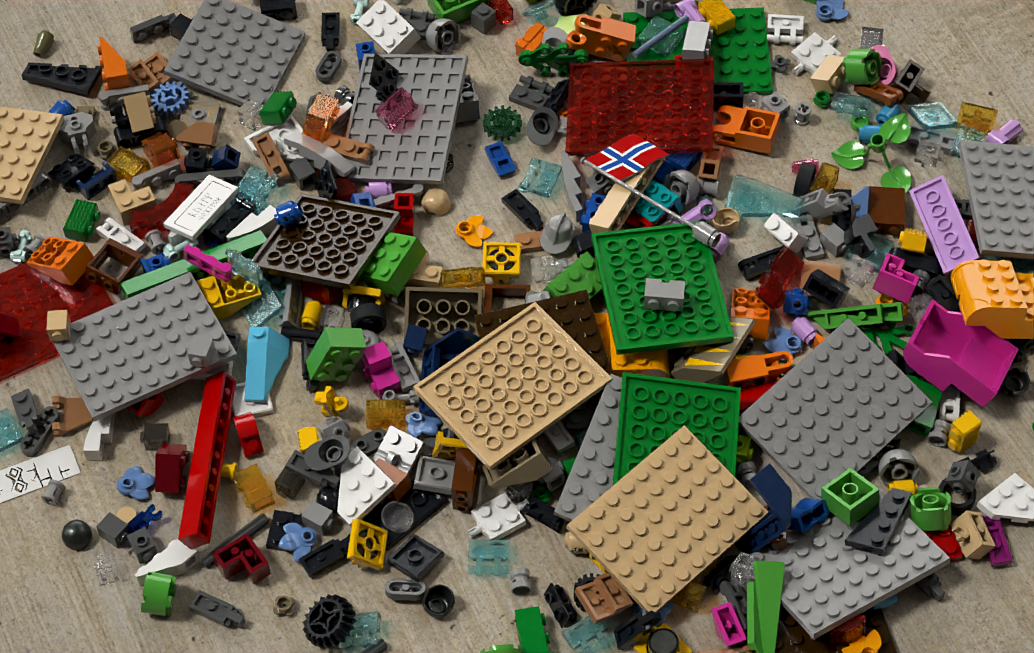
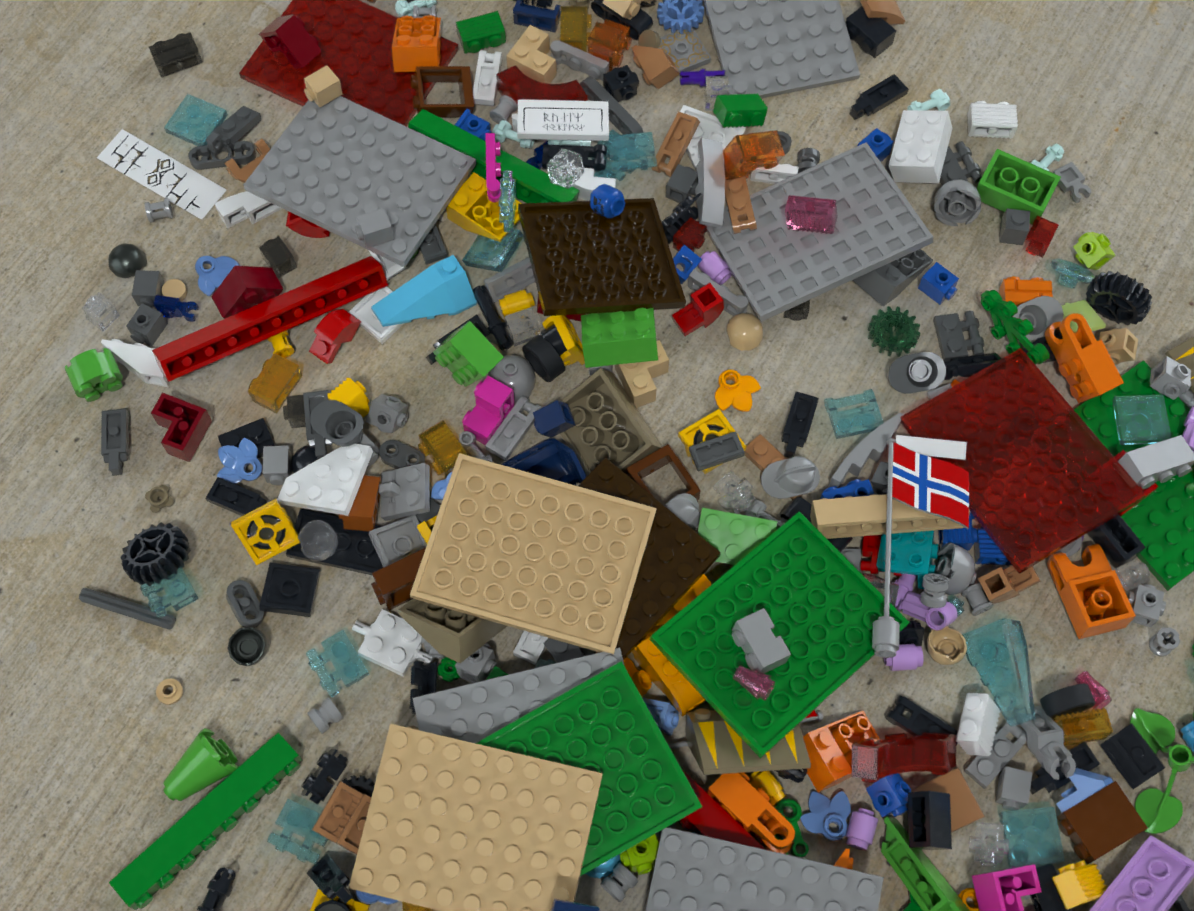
camera: 55 degrees right, 10 degrees up
(225, 158) = (642, 105): dark blue brick -> none
(230, 117) = (698, 77): none -> dark purple pin
(243, 224) = (565, 168): none -> clear brick
(251, 528) = (213, 405): dark grey axle -> none
(328, 68) = (832, 123): dark grey plate -> none
(330, 402) = (416, 388): yellow hips -> none
(383, 78) = (840, 176): black hinge -> none
(463, 277) = (657, 417): clear yellow brick -> none
(489, 80) = (938, 283): none -> blue brick
(500, 159) = (847, 359): blue slope -> none
(513, 257) = (716, 451): none -> dark grey plate
(600, 144) = (933, 447): none -> white sticker
(660, 36) = (1135, 418): sand blue bar -> none
(688, 311) = (756, 683): none -> clear pink cone
(691, 200) = (934, 590): none -> light grey wheel
(858, 171) = (1132, 756): none -> black plate
(859, 235) = (1035, 810): black brick -> none

